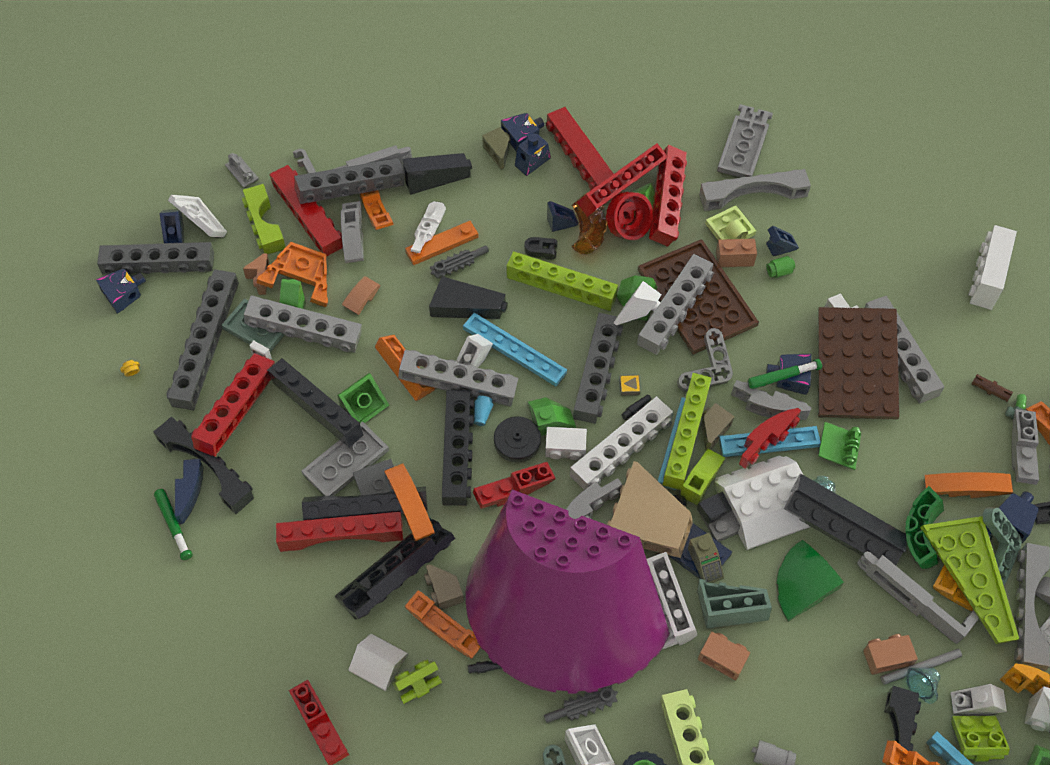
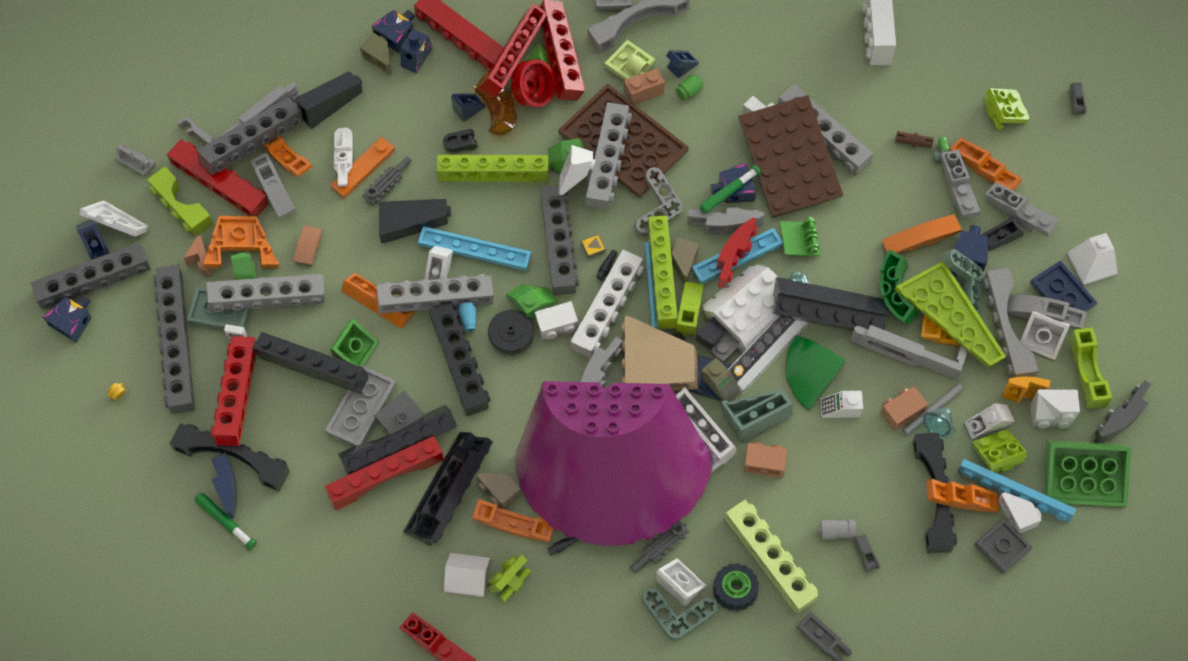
camera: 20 degrees left, 5 degrees up
(409, 501) = (439, 422): orange slope -> none
(522, 481) = (526, 376): red slope -> none
(763, 544) = (765, 350): none -> sticker
(825, 627) = (842, 405): none -> white slope

